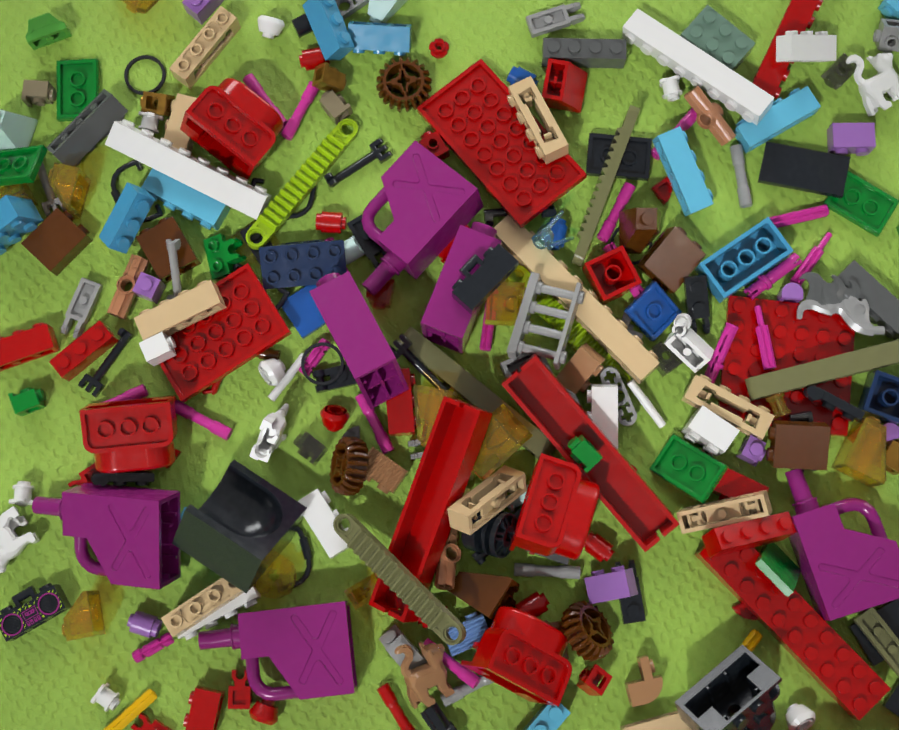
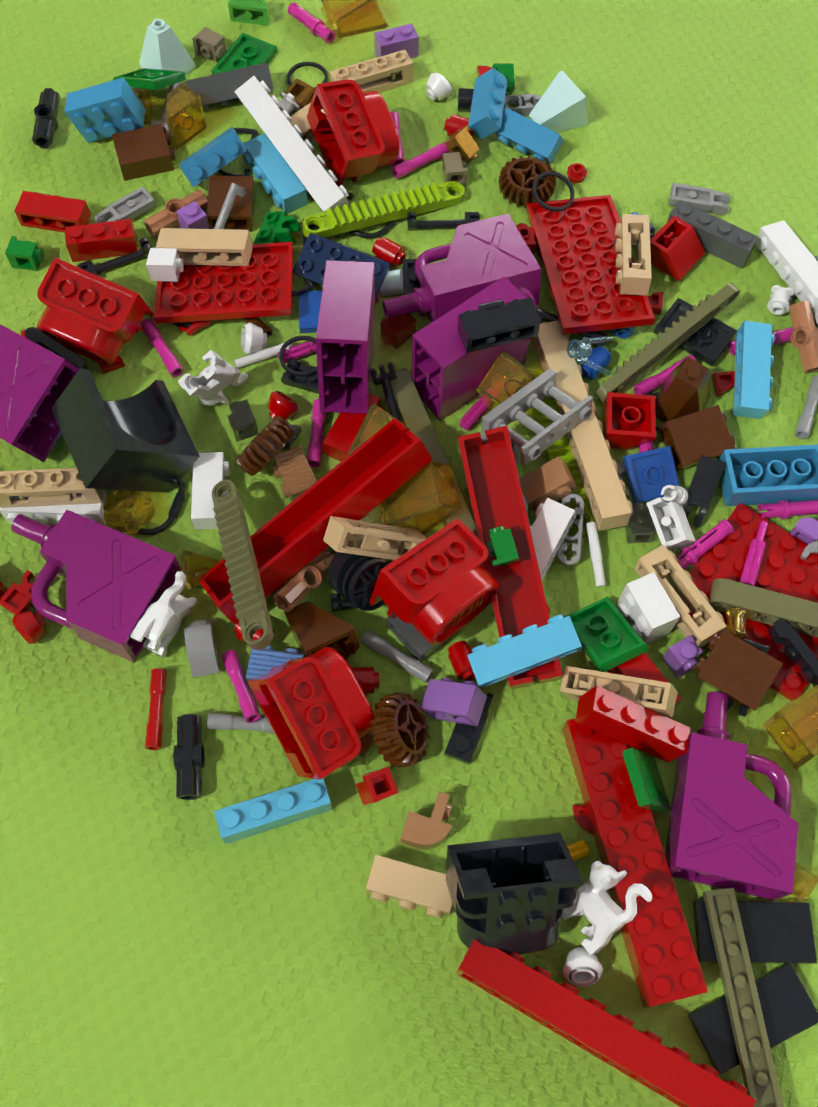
camera: 25 degrees right, 15 degrees down
(119, 16) = (315, 25): none -> dark pink pin
(364, 649) = (164, 618): none -> white animal
(426, 676) = (205, 679): medium nougat animal -> none
(444, 72) = (542, 204): none -> black piece
(574, 147) = (656, 302): none -> red tile
(645, 525) = (524, 651): none -> medium azure brick
(797, 677) = (600, 909): none -> white animal

